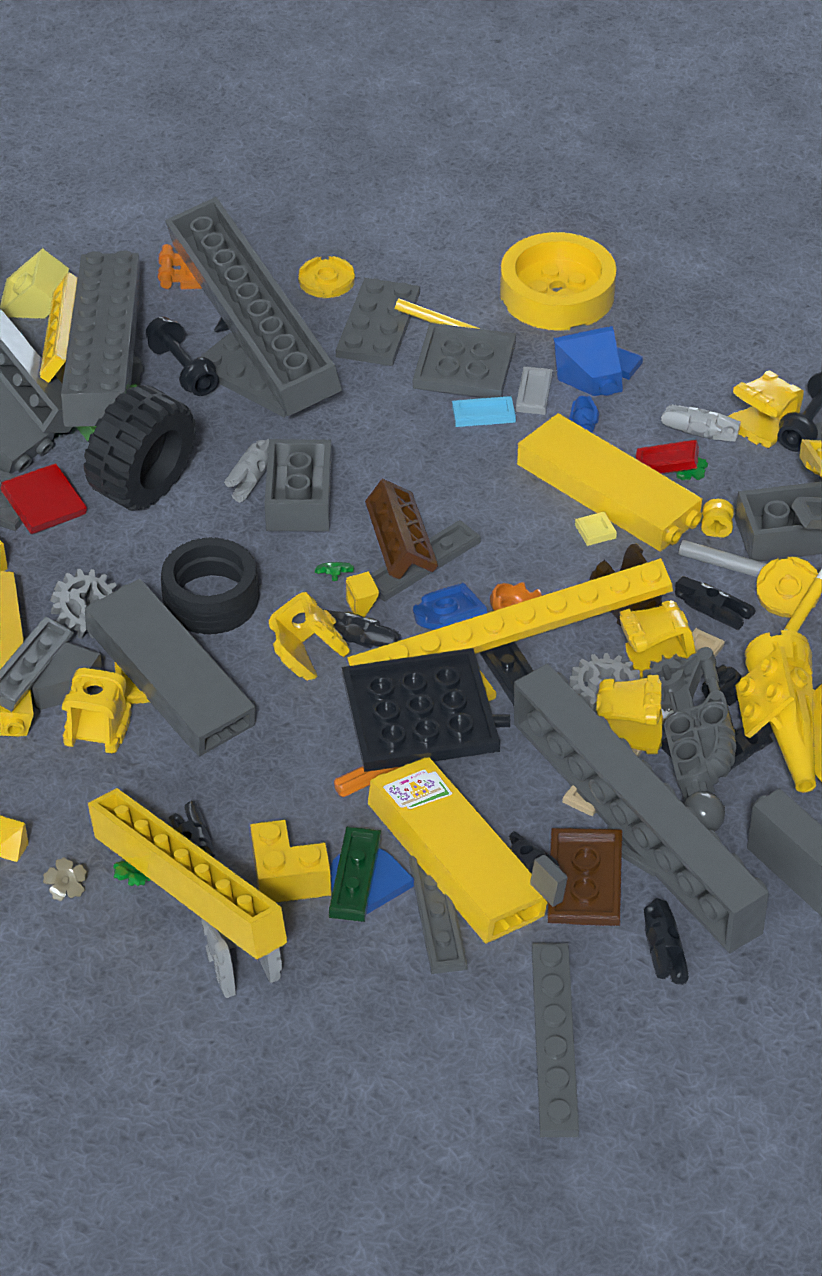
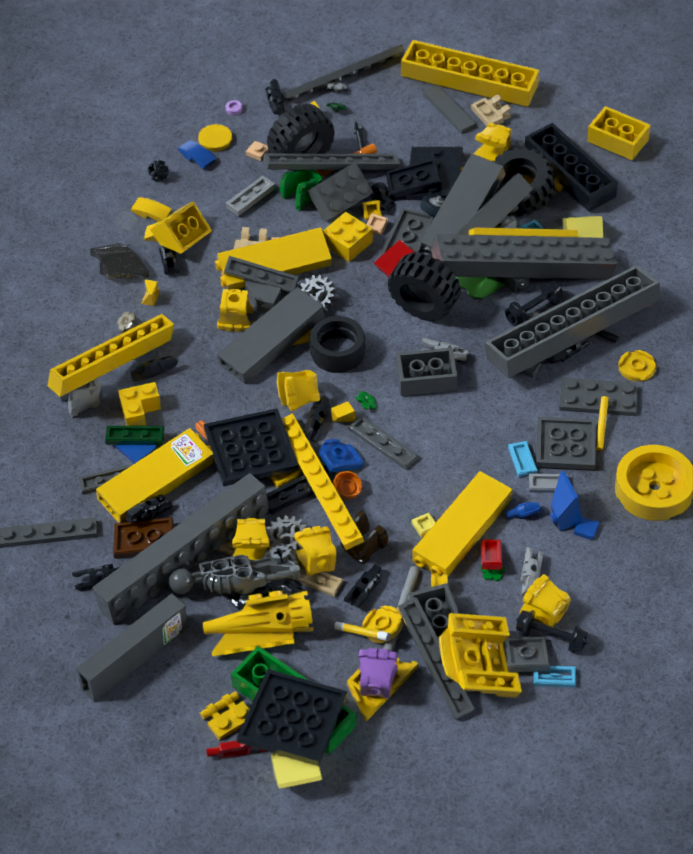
camera: 85 degrees right, 5 degrees up
(399, 529) = (395, 419): reddish brown fence -> none
(548, 880) = (119, 509): dark grey tile -> none

